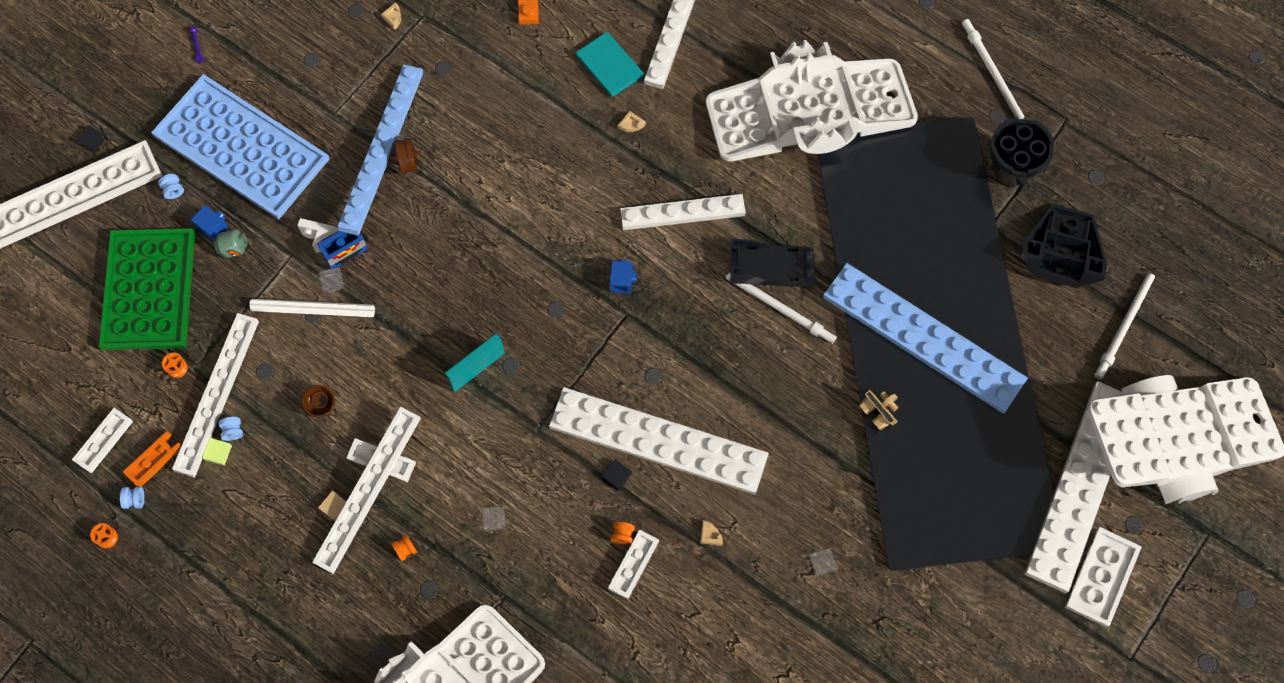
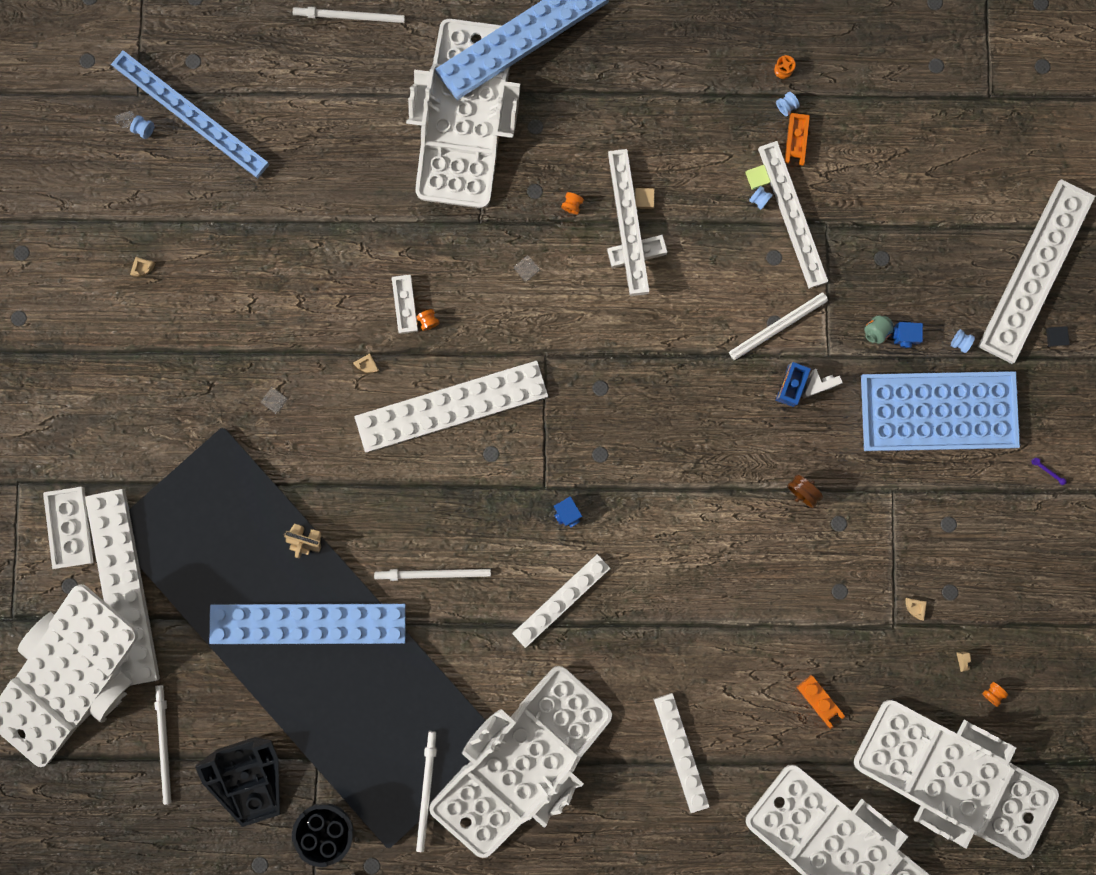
camera: 145 degrees right, 15 degrees up
(102, 440) = (843, 127): white plate -> none
(147, 289) = (910, 254): green plate -> none
(170, 361) = (843, 210): orange wheel -> none
(318, 401) = (714, 259): reddish brown hair -> none
(331, 280) = (782, 357): clear tile -> none
(380, 150) = (828, 483): light blue plate -> none
(475, 362) = (623, 364): teal tile -> none
(609, 64) = (711, 689): teal tile -> none
(617, 474) = (463, 360): black tile -> none
(631, 123) = (656, 649): tan tile -> none
(771, 264) = (462, 603): black piece -> none
(885, 163) = (430, 753): none -> white bar

